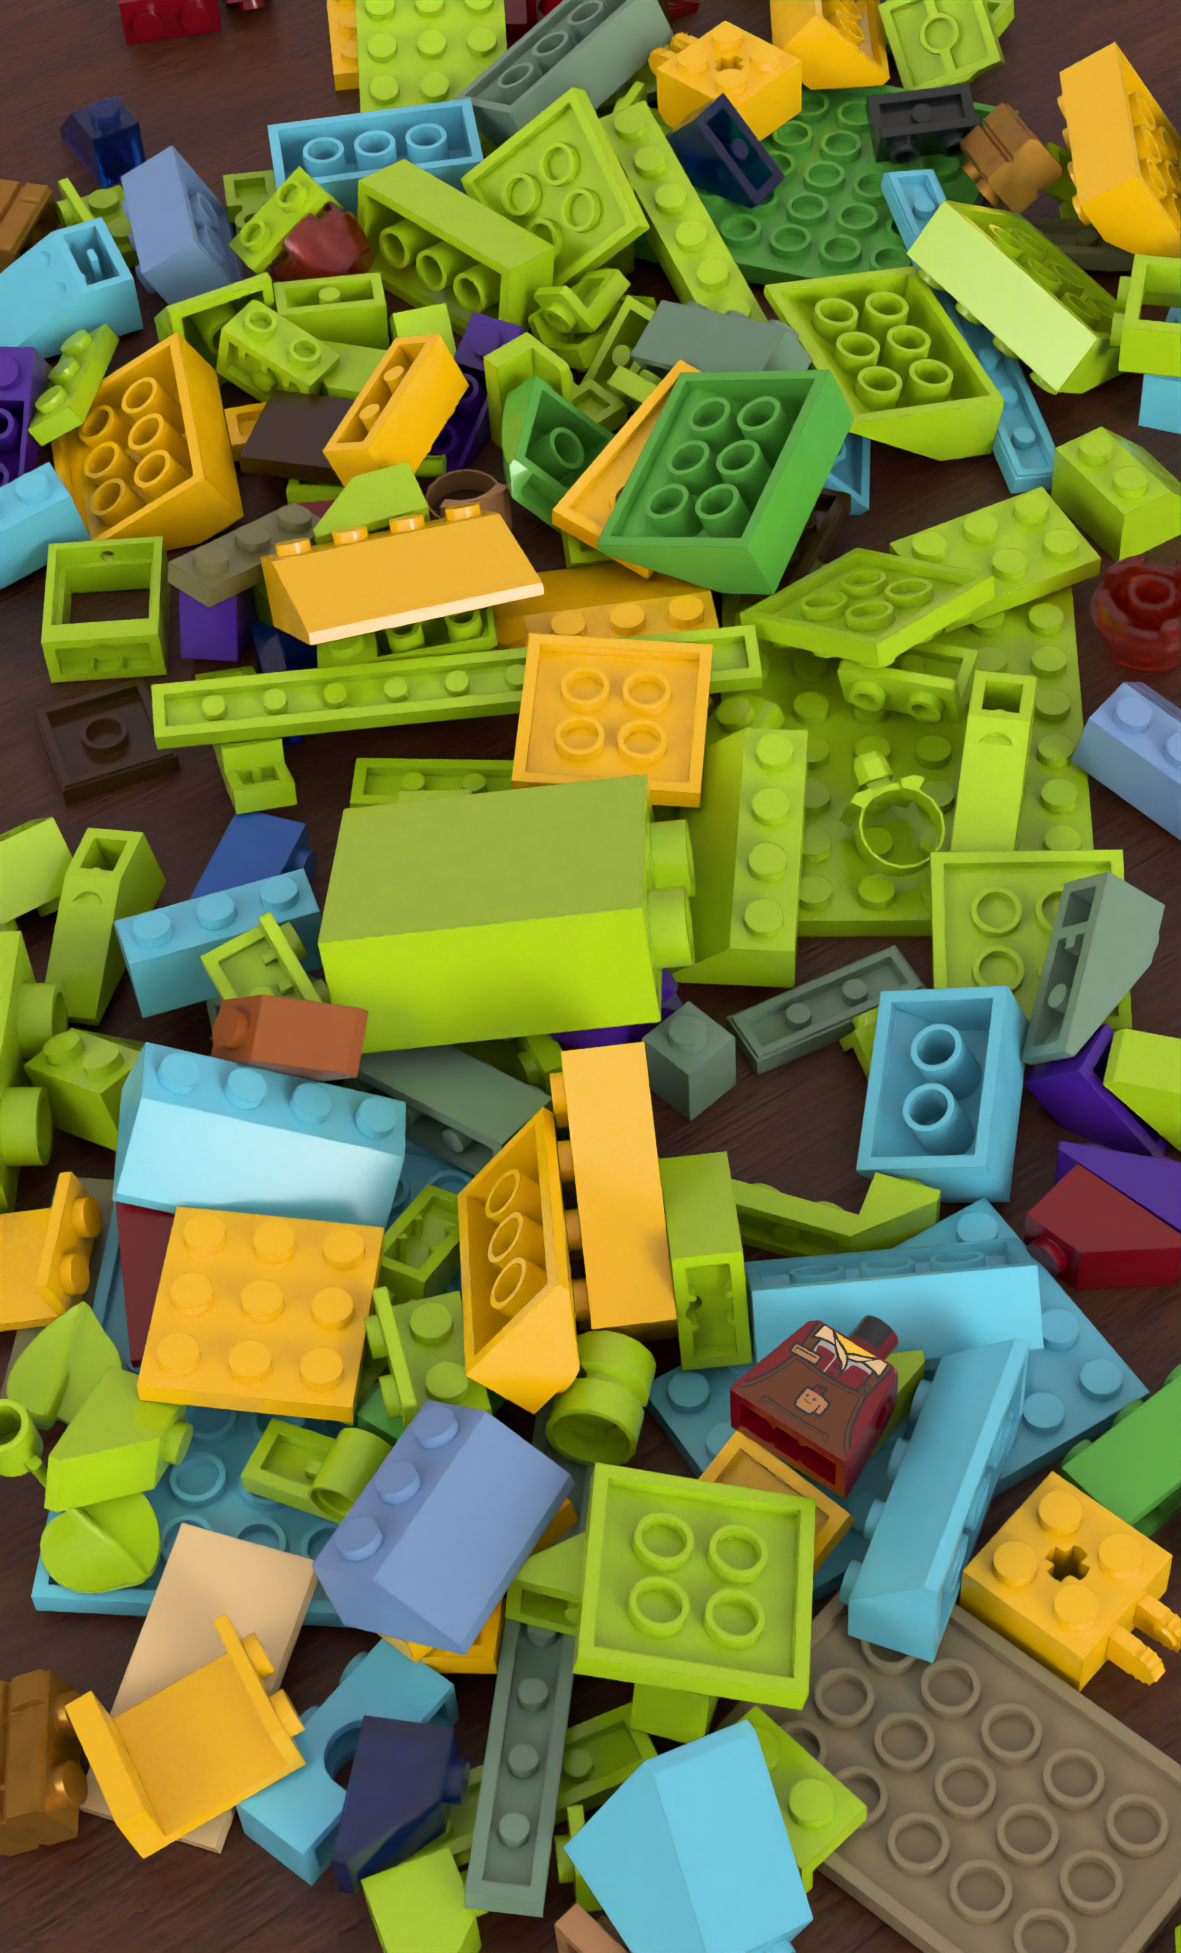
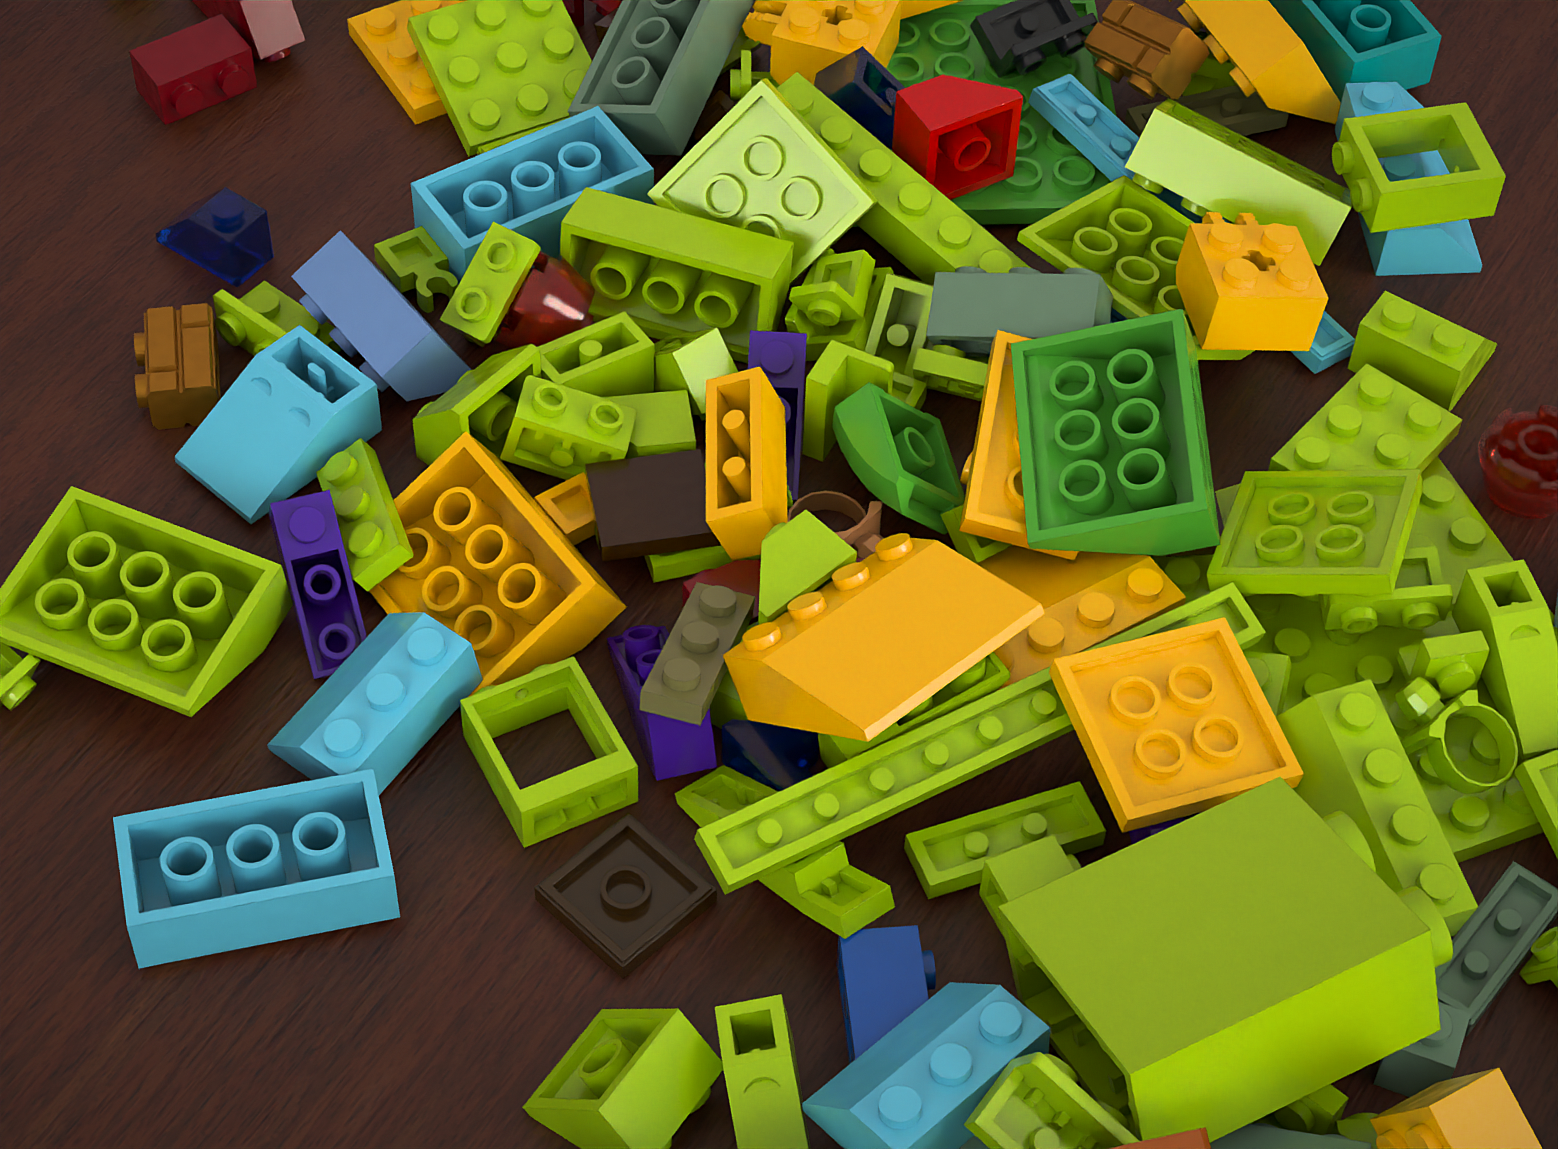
camera: 30 degrees left, 0 degrees up
(770, 194) = (957, 132): none -> red slope
(918, 749) = (1447, 661): none -> lime bracket
(939, 378) = (1249, 285): none -> yellow hinge

